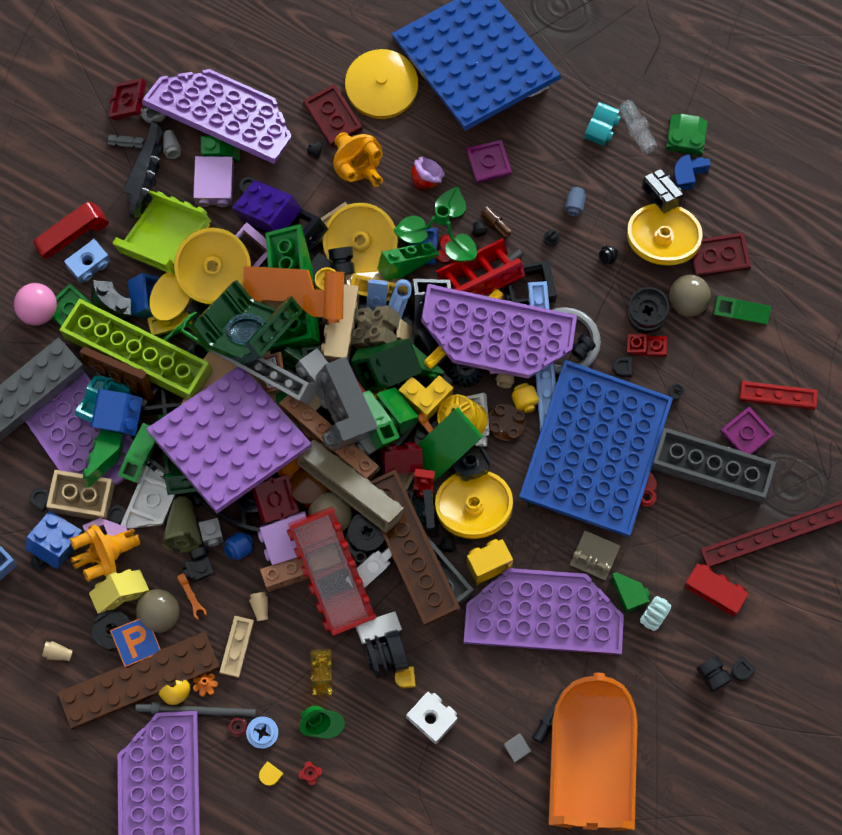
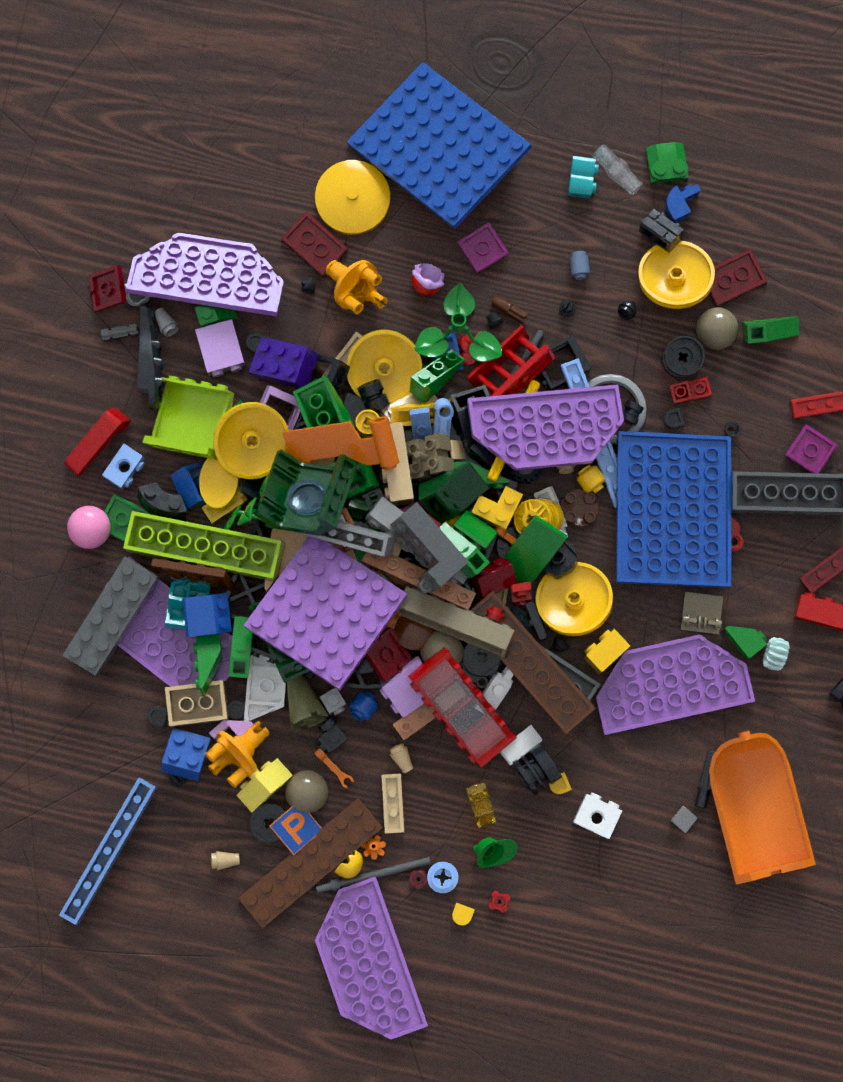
camera: 20 degrees left, 10 degrees up
(390, 489) = (495, 613): none -> red plate

